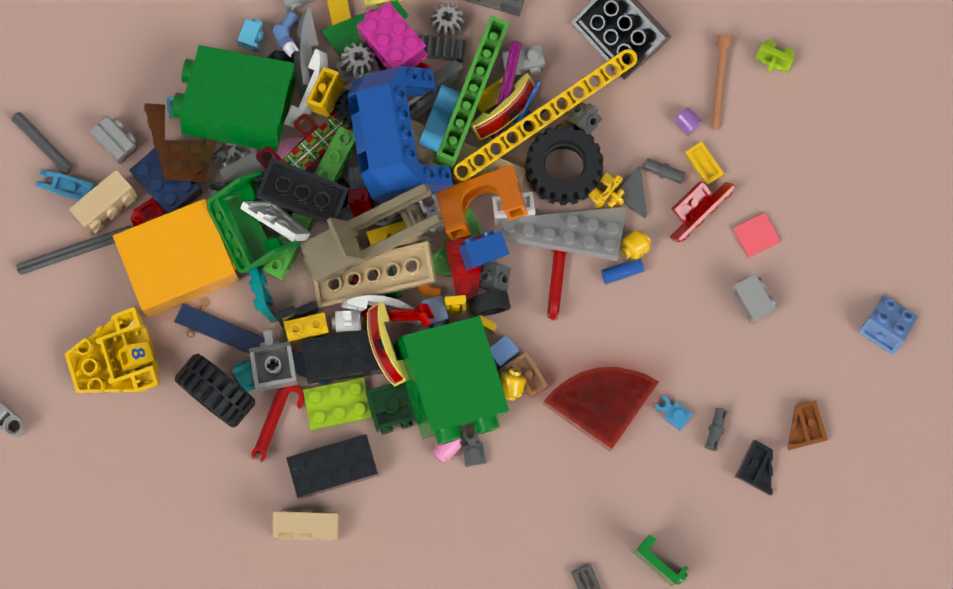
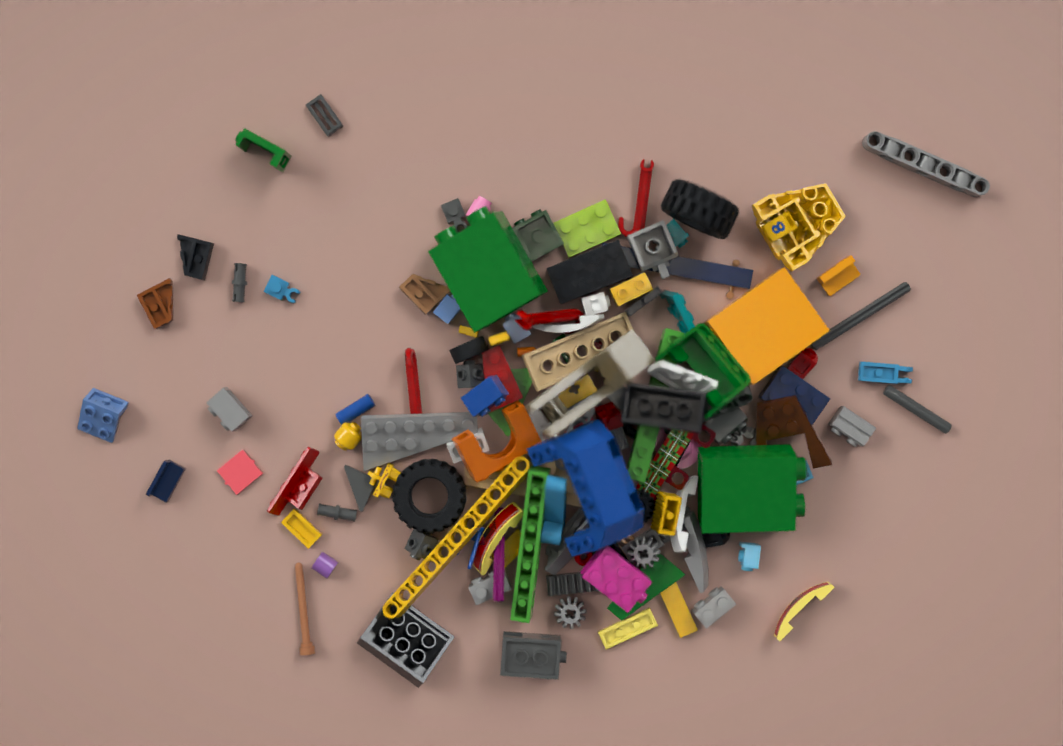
camera: 170 degrees right, 10 degrees up
(87, 296) = (838, 275): none -> light orange panel
(104, 203) = (845, 362): tan brick -> none
(282, 33) = (720, 563): medium blue arm -> none
(305, 525) = (589, 111): tan wedge -> none
(332, 466) = (577, 169): black brick -> none
(381, 346) = (558, 284): slope -> none
(512, 384) = (431, 279): yellow head -> none
(601, 401) = (346, 282): clear red brick -> none
(775, 58) = (256, 643): lime hips -> none
(834, 242) = (166, 480): none -> dark blue panel

